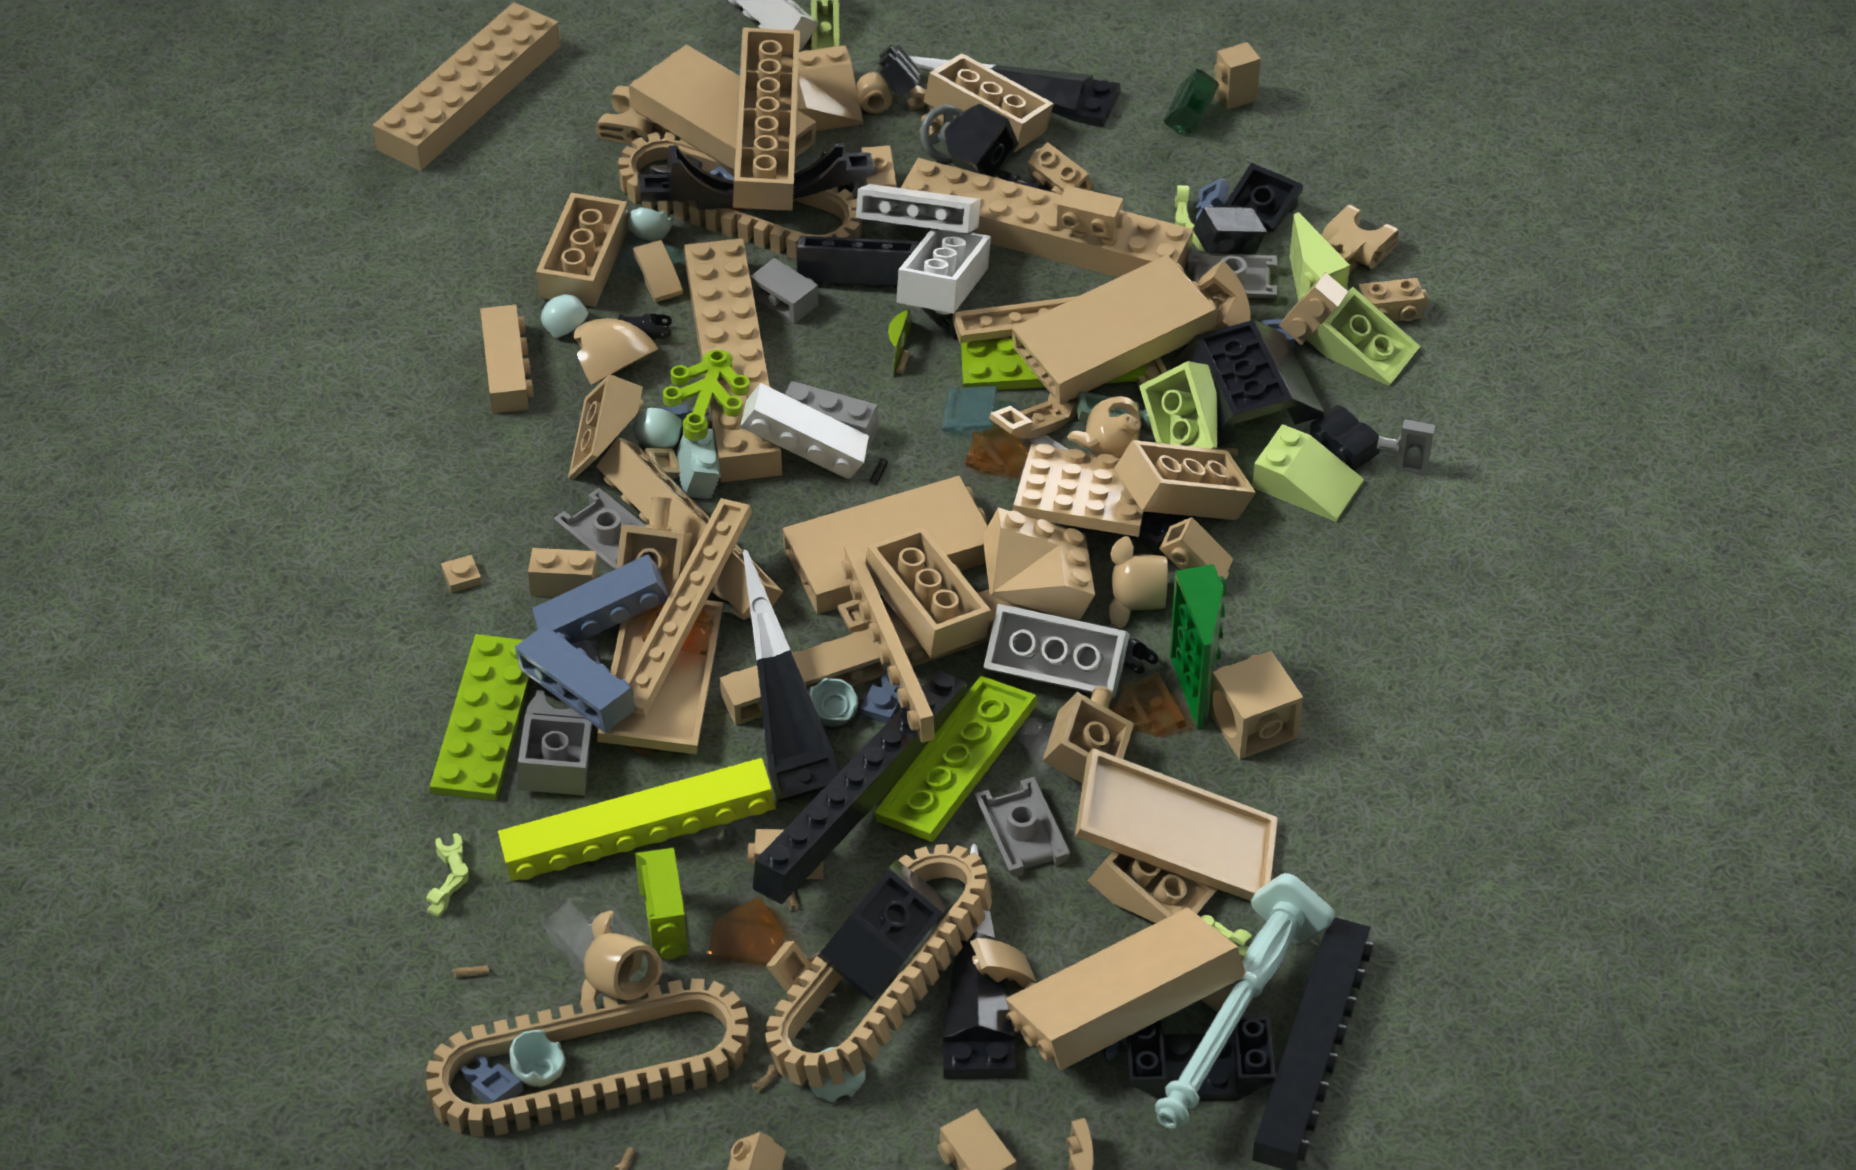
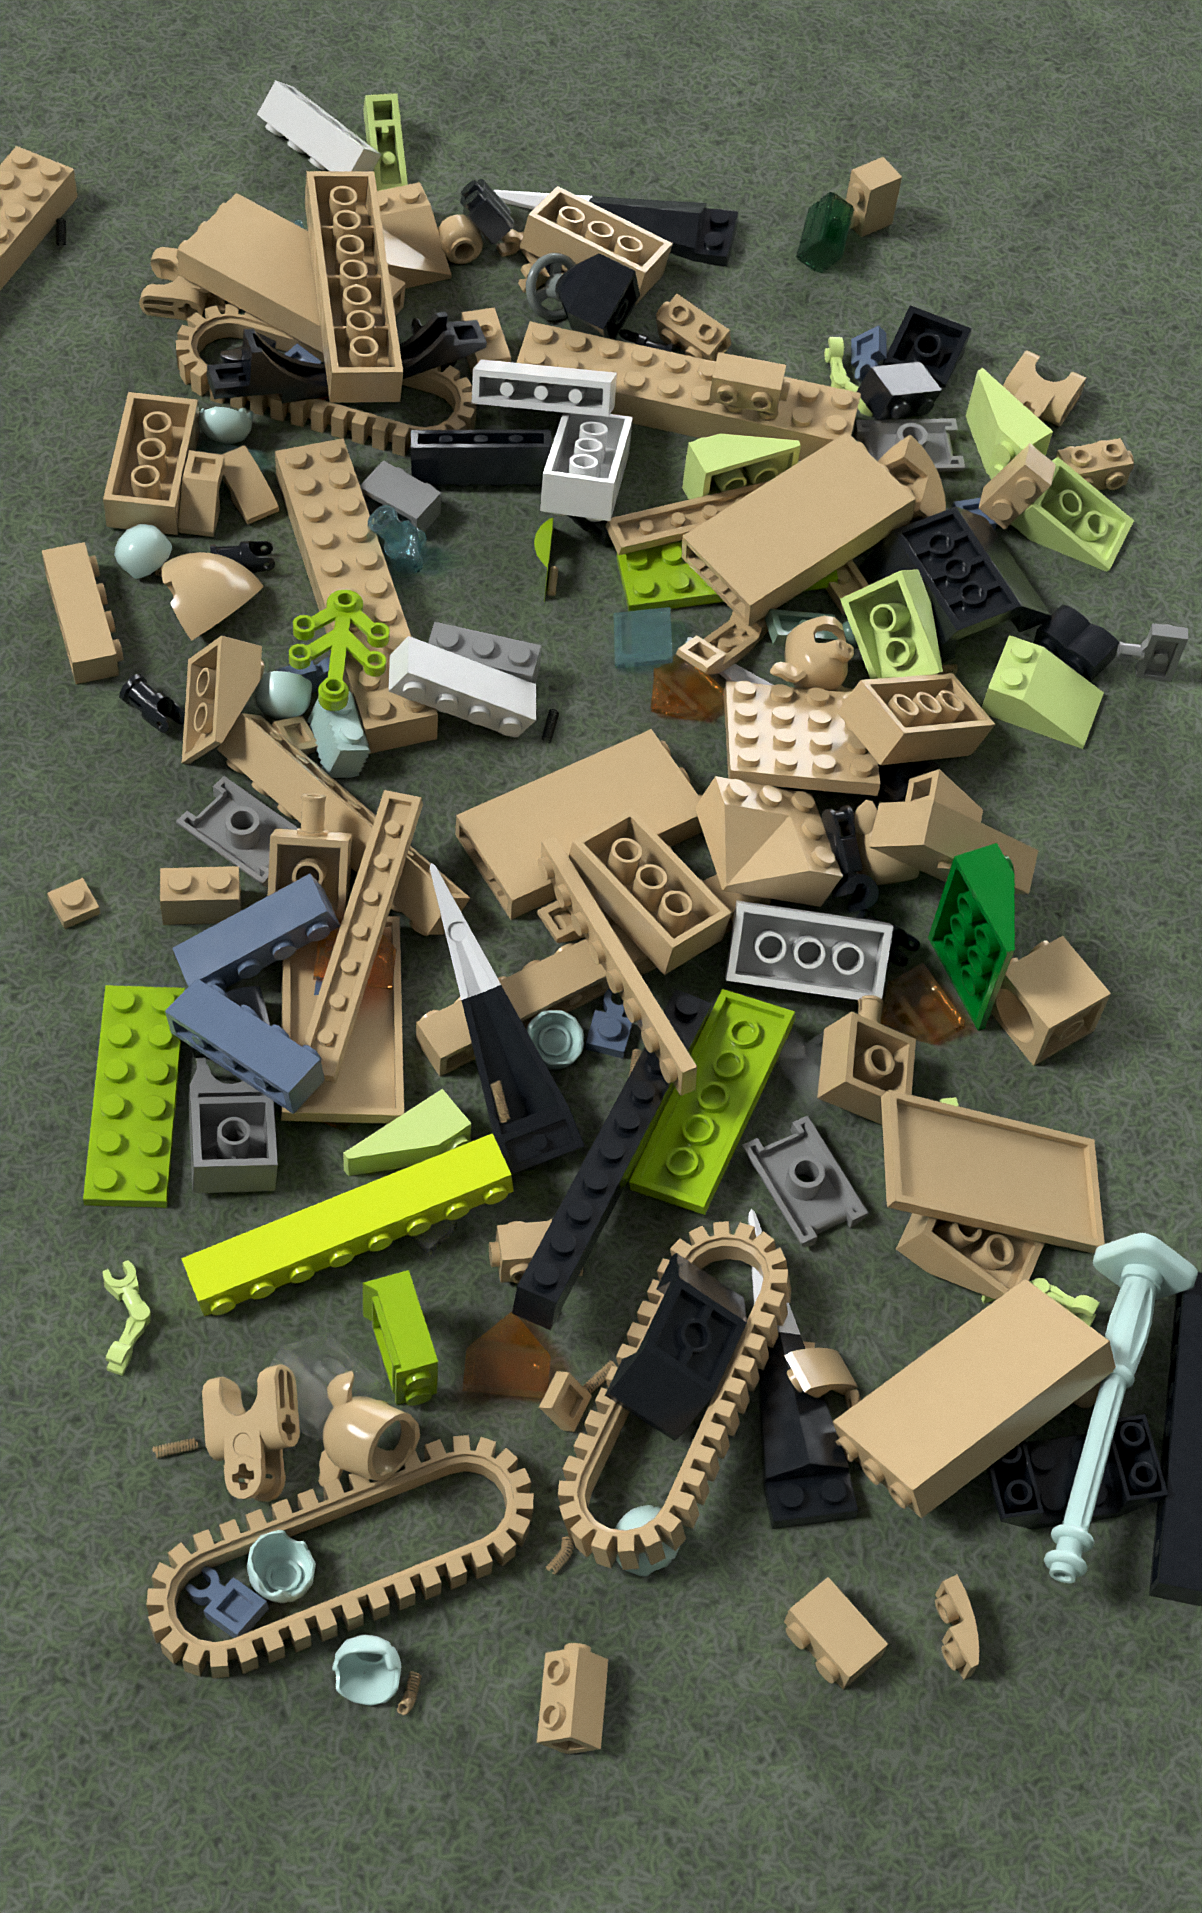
camera: 15 degrees left, 10 degrees up
(530, 963) = (252, 1439): none -> tan piece
(543, 74) = (58, 238): none -> black leg
(551, 431) = (151, 703): none -> black piece
(588, 1129) = (375, 1658): none -> light aqua hair
(616, 277) = (200, 493): none -> tan slope
(700, 758) = (411, 1138): none -> yellowish green slope
(776, 741) = (501, 1102): none -> tan leg
(779, 320) = (401, 539): none -> clear light blue connector
(1070, 274) = (734, 462): none -> yellowish green slope
(1103, 582) = (848, 857): none -> black piece
(1157, 553) = (932, 834): none -> tan brick

